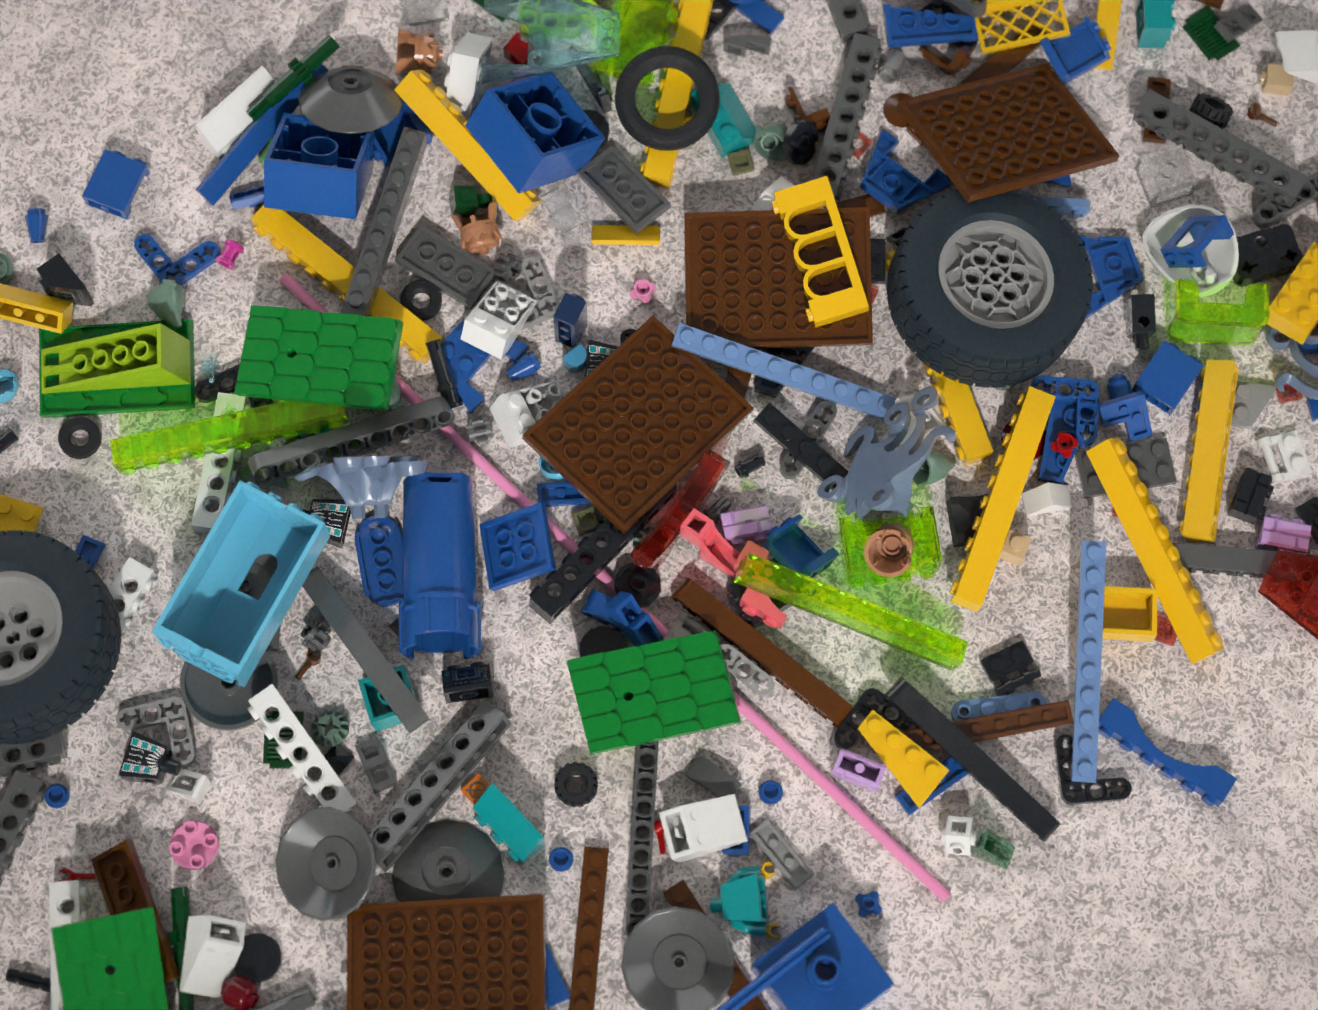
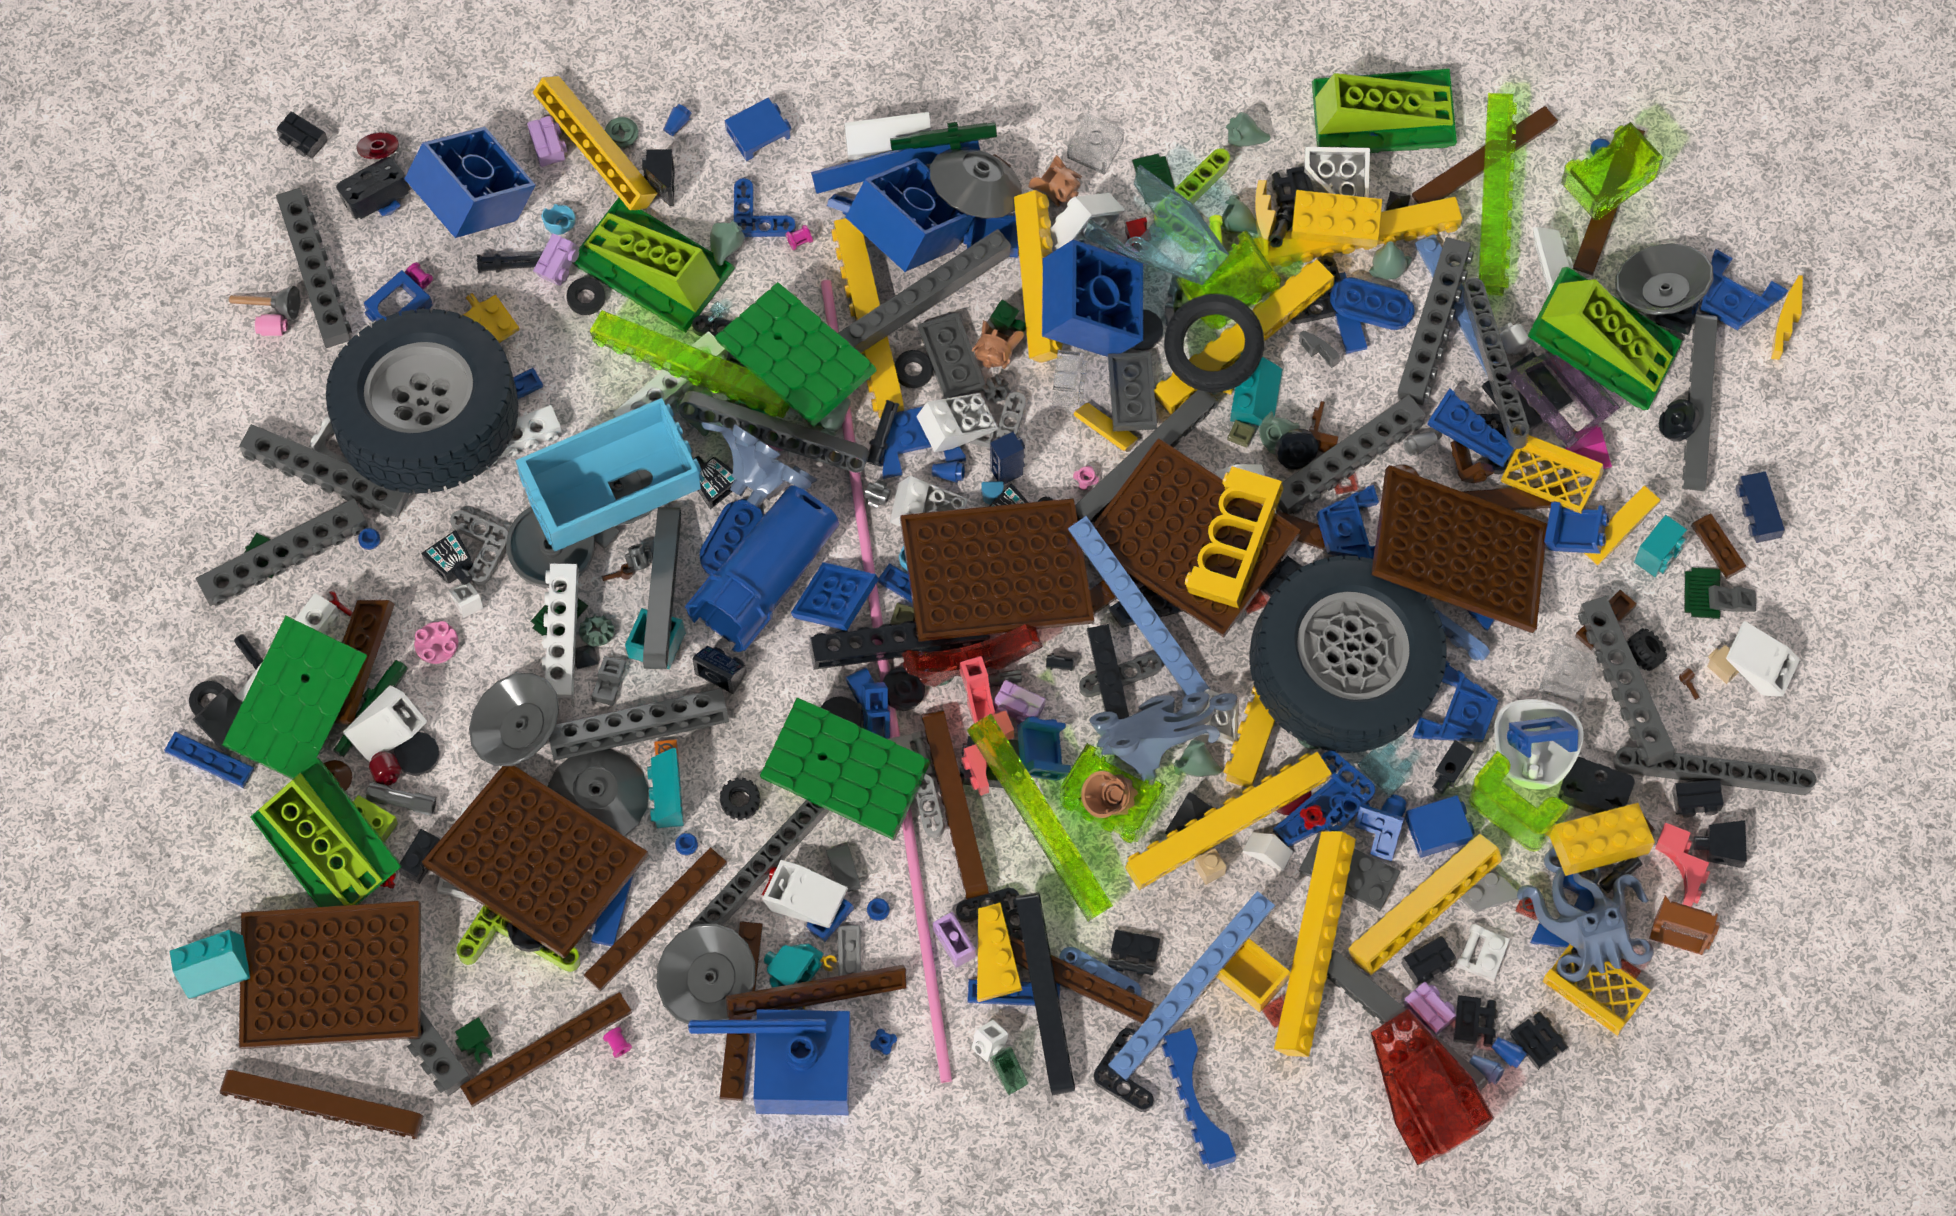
camera: 40 degrees right, 5 degrees down
(29, 423) = (556, 259): none -> lavender brick
(674, 263) = (1170, 431): none -> dark grey beam
(782, 907) = (817, 991): none -> reddish brown tile
(1086, 366) = (1382, 773): none -> clear light blue plate

